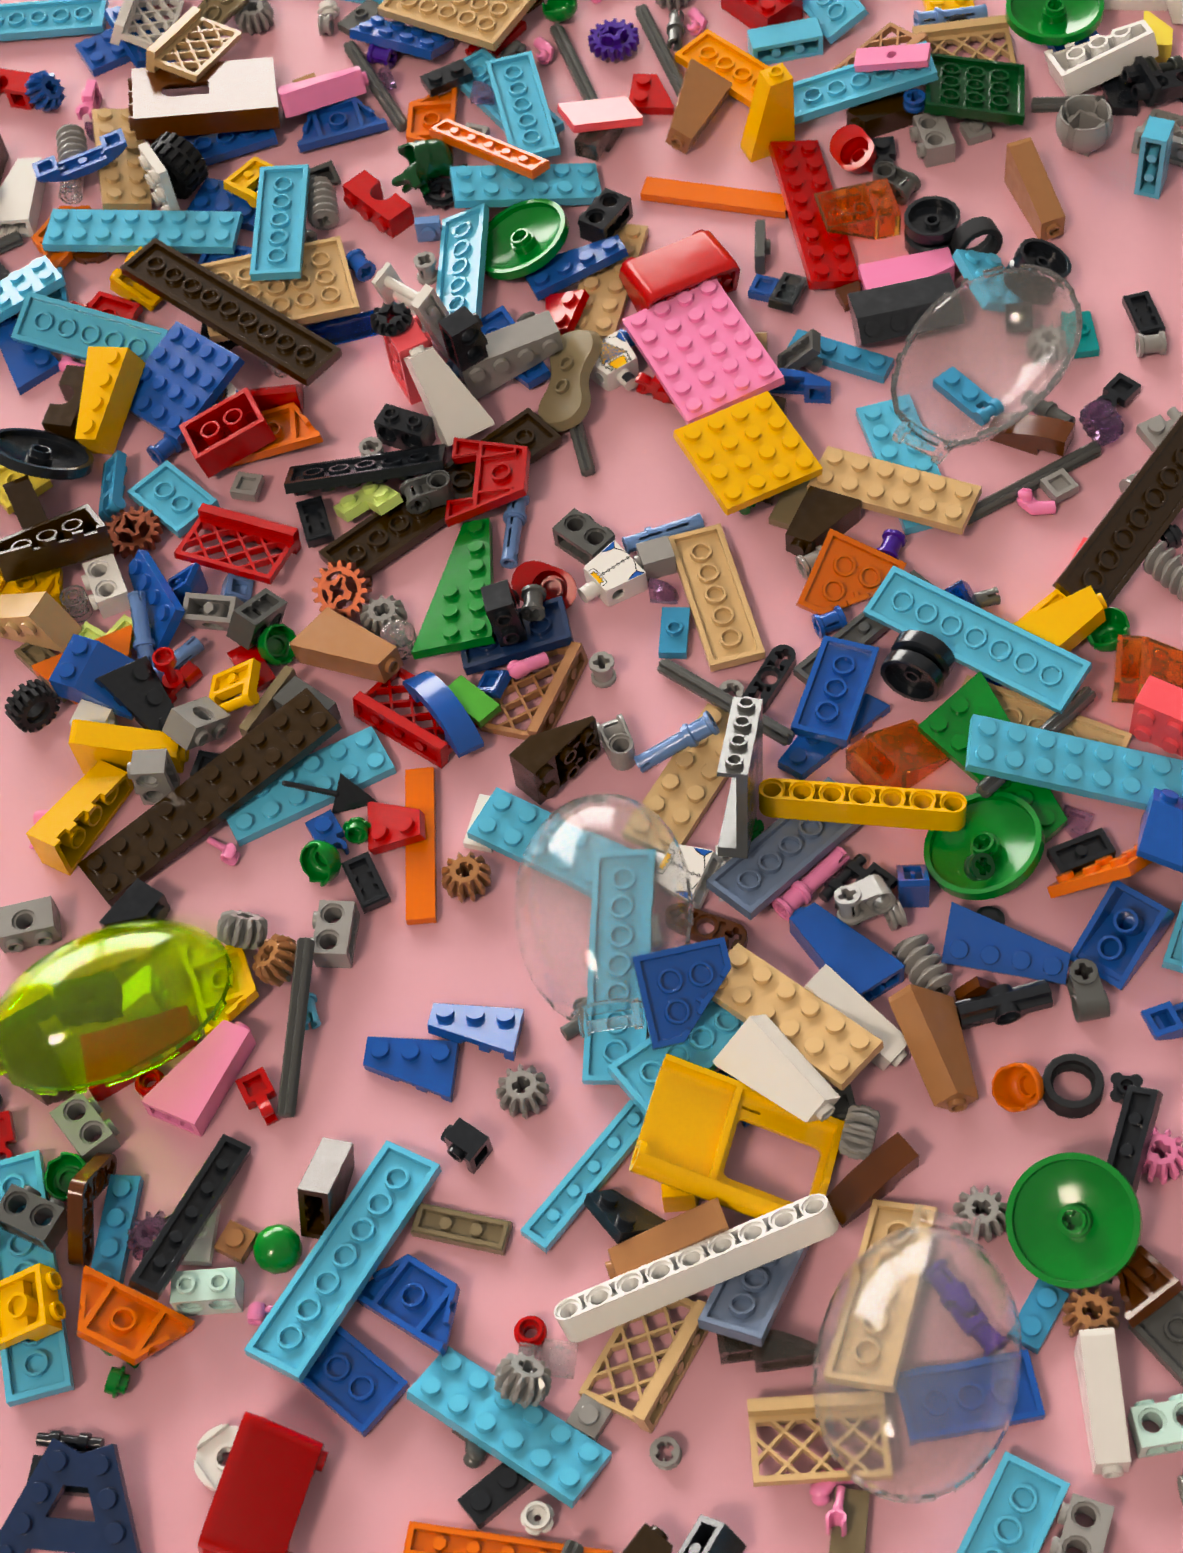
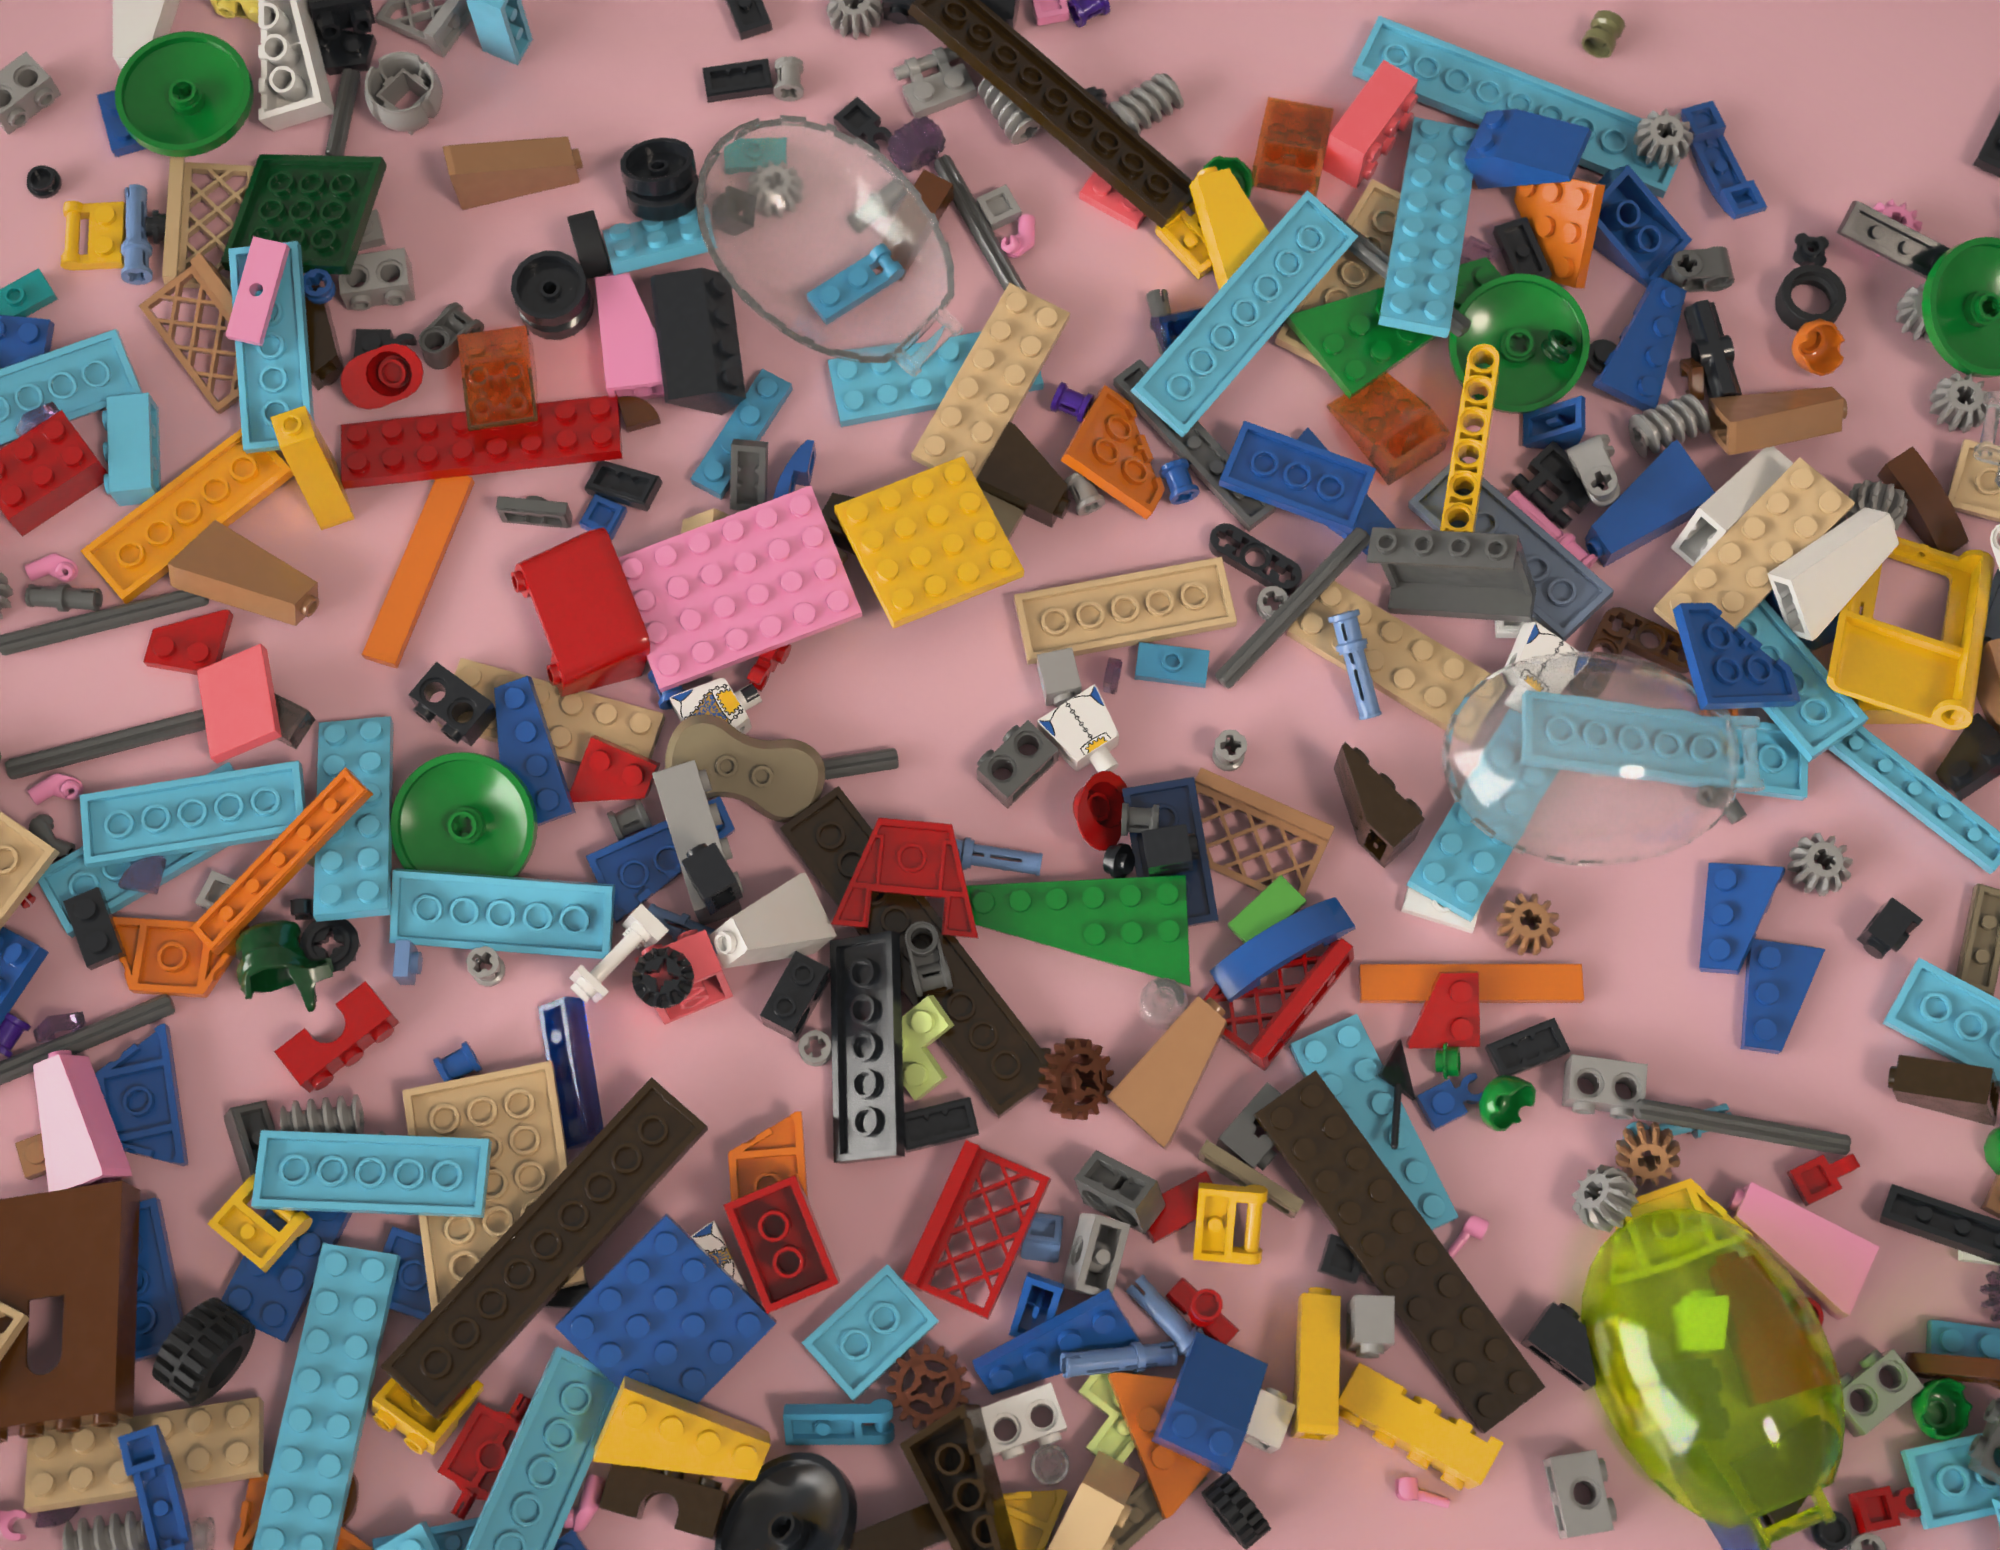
camera: 95 degrees left, 15 degrees up
(140, 692) = (1242, 1345): black wing -> none
(158, 179) = (250, 1368): white plate -> none
(163, 449) = (776, 1351): blue bush -> none
(196, 723) = (1290, 1268): light grey brick -> none
(247, 486) = (862, 1223): light grey plate -> none
(275, 646) = (1159, 1165): green hair -> none
(279, 395) = (700, 1186): red slope -> none
(381, 612) = (1104, 1027): light grey gear -> none
(494, 682) = (1236, 887): blue tile -> none
(519, 669) = (1225, 836): bright pink arm -> none
(613, 40) = (79, 690): dark purple gear -> none
(617, 743) = (1328, 737): light grey piece -> none
(676, 527) = (1019, 681): medium blue pin -> none
(917, 665) = (1271, 383): black wheel -> none

